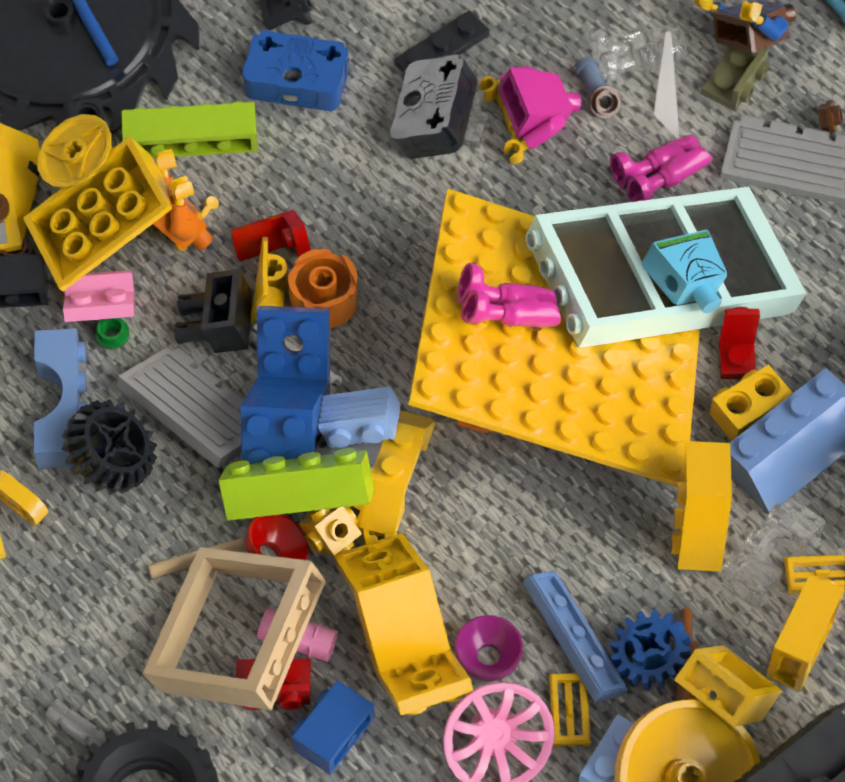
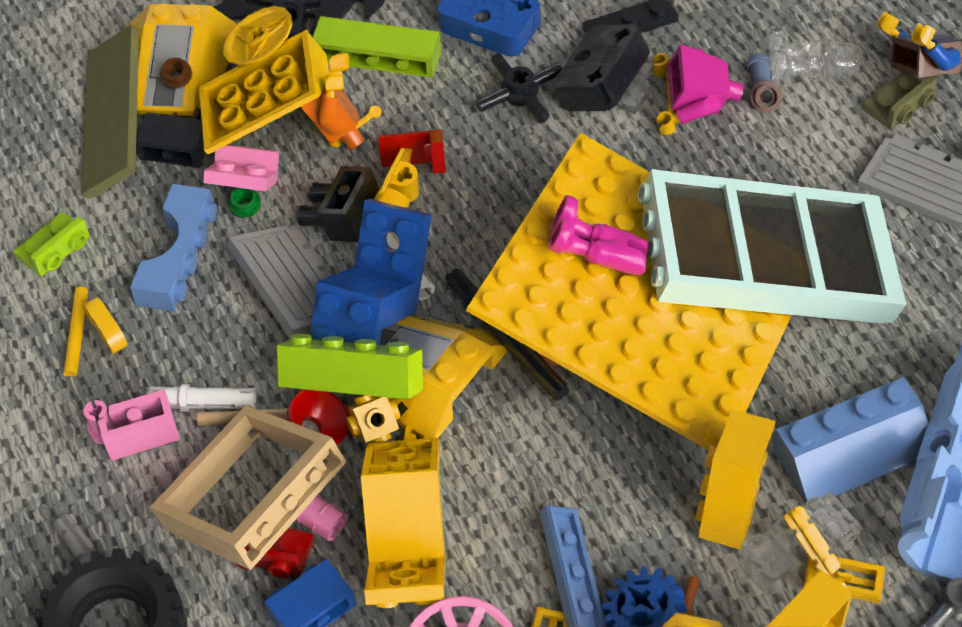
camera: 20 degrees right, 5 degrees down
(92, 594) = (132, 424): none -> bright pink hinge
(109, 446) = (193, 278): black gear -> none
(147, 549) = (208, 398): none -> white pin
(325, 283) = (450, 200): orange brick -> none
(354, 144) = (519, 87): none -> black bar
(359, 417) = (431, 319): light blue brick -> none
(462, 431) = (527, 357): none -> black axle
(489, 632) = (479, 551): magenta piece -> none
(666, 102) = (825, 106): white sticker -> none
(670, 163) = (807, 162): dark pink piece -> none
(687, 269) = (786, 250): medium azure torso -> none
(737, 342) = (824, 336): red bracket -> none
(746, 399) = (817, 390): yellow brick -> none
(787, 548) = (811, 540): none -> yellow axle

